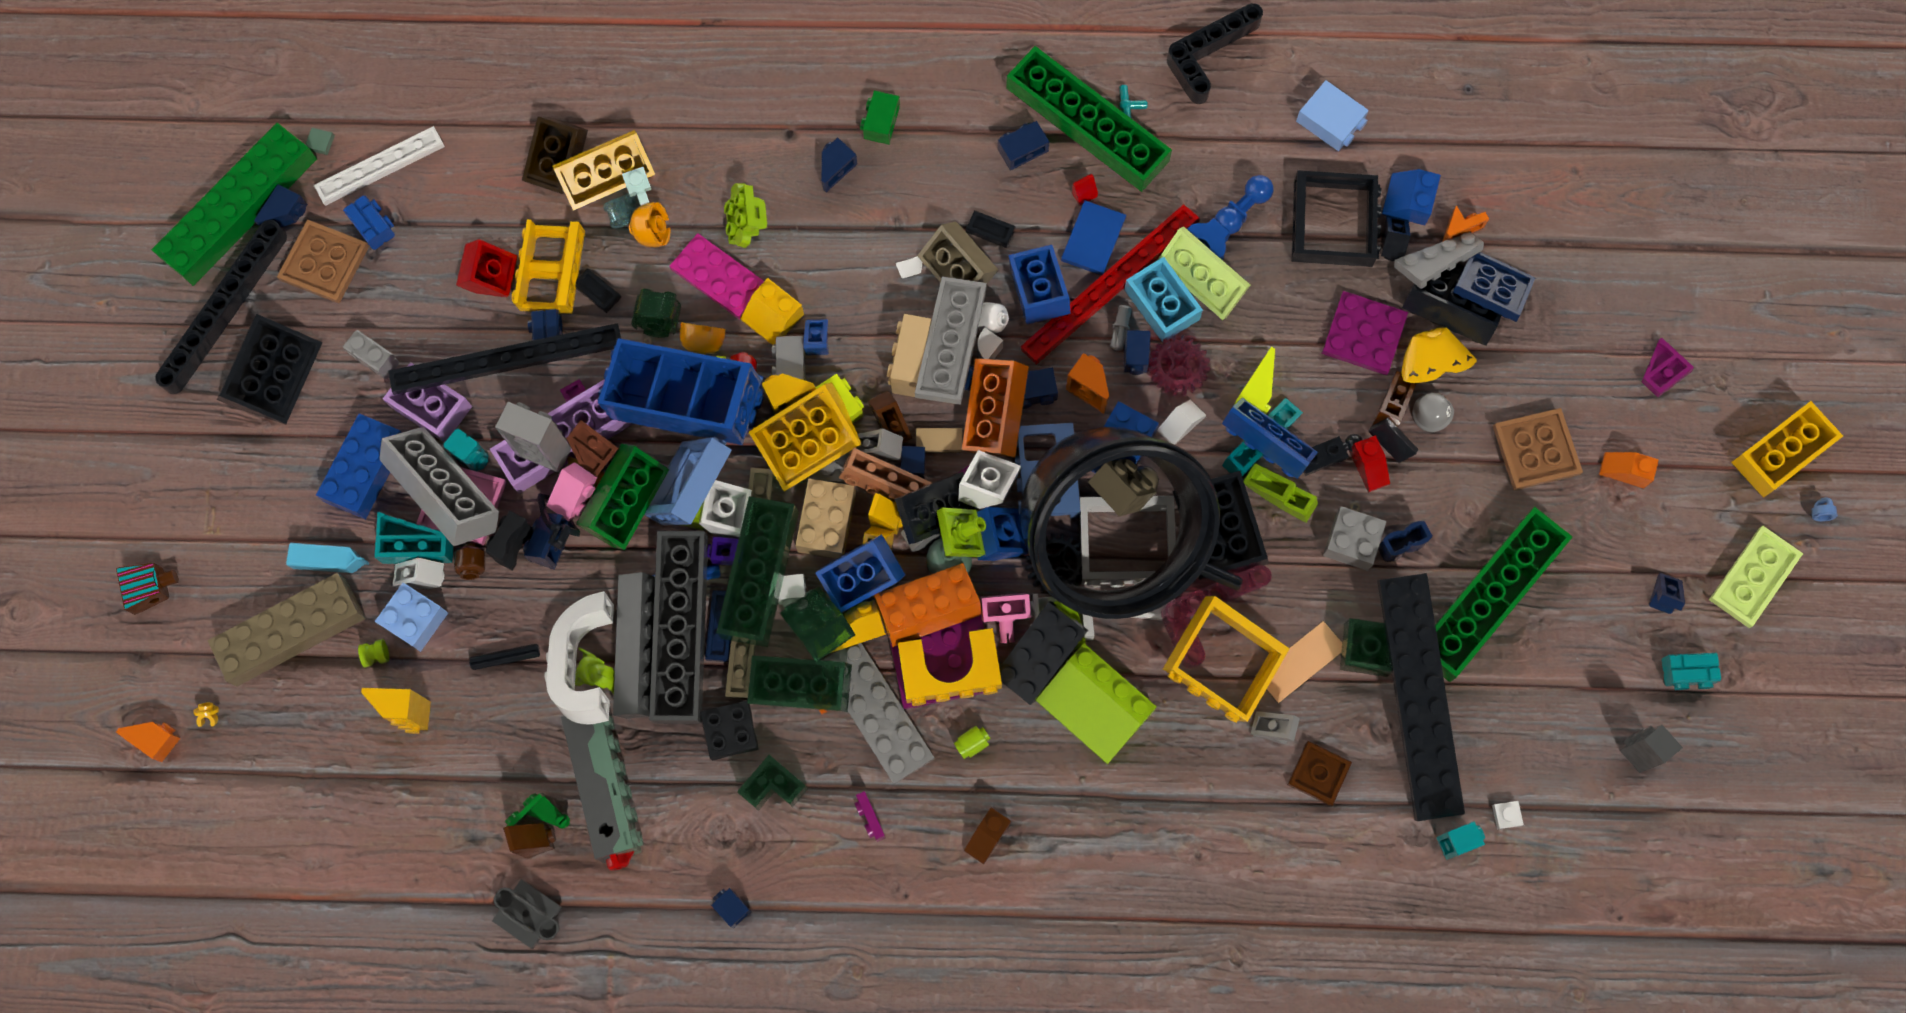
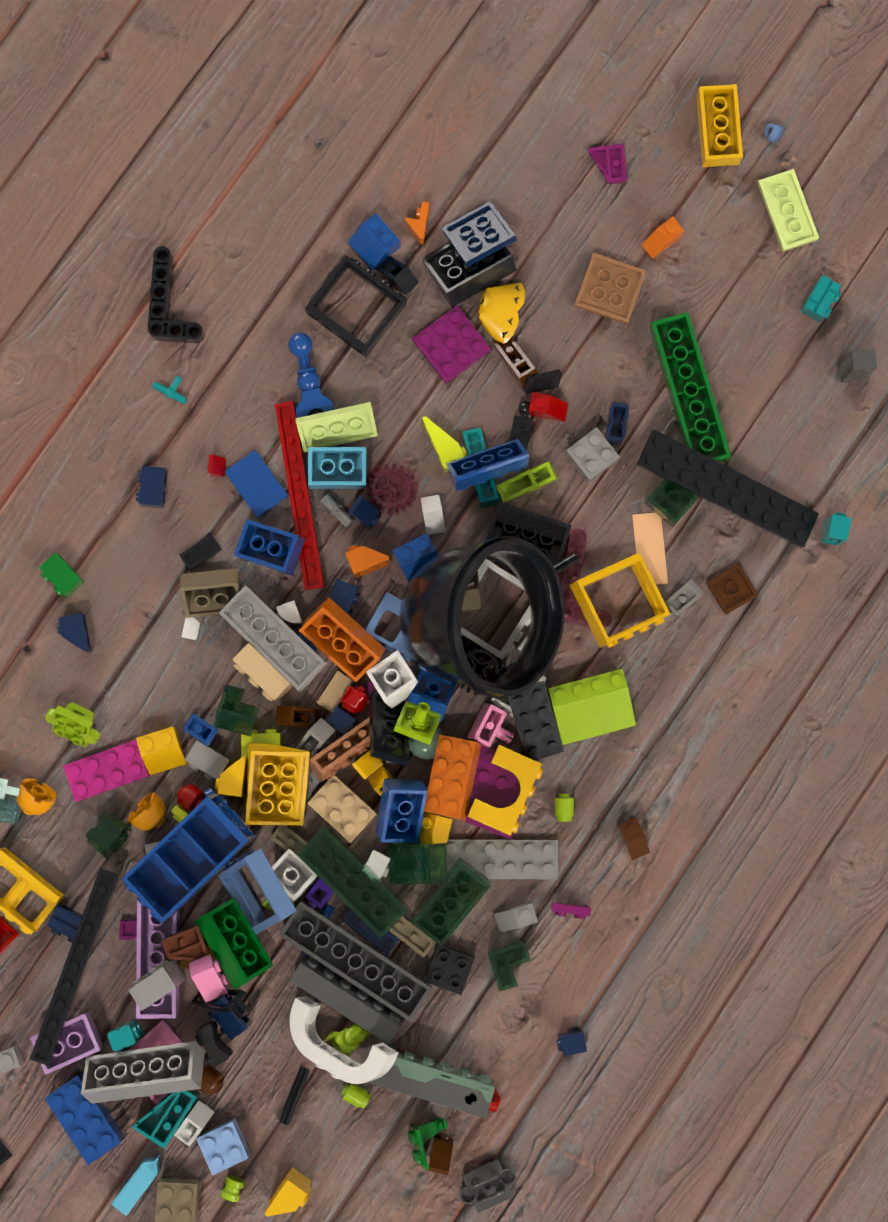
camera: 60 degrees left, 10 degrees up
(541, 717) = (355, 1095): none -> lime brick
(597, 290) = (58, 866): black tile -> none
(826, 765) = (516, 917): none -> light grey slope
(852, 353) = (234, 714): none -> clear green brick
(944, 461) = (355, 699): none -> red head
(993, 317) = (271, 595): white head -> none
(1088, 118) = (164, 427): green brick -> none
(1332, 116) = (278, 253): light blue brick -> none
(1432, 412) = (538, 339): light grey helmet -> none
(1433, 260) = (434, 266): light grey wing -> none
(1507, 815) = (836, 485): white plate -> none
(1667, 594) = (762, 275): dark blue slope -> none

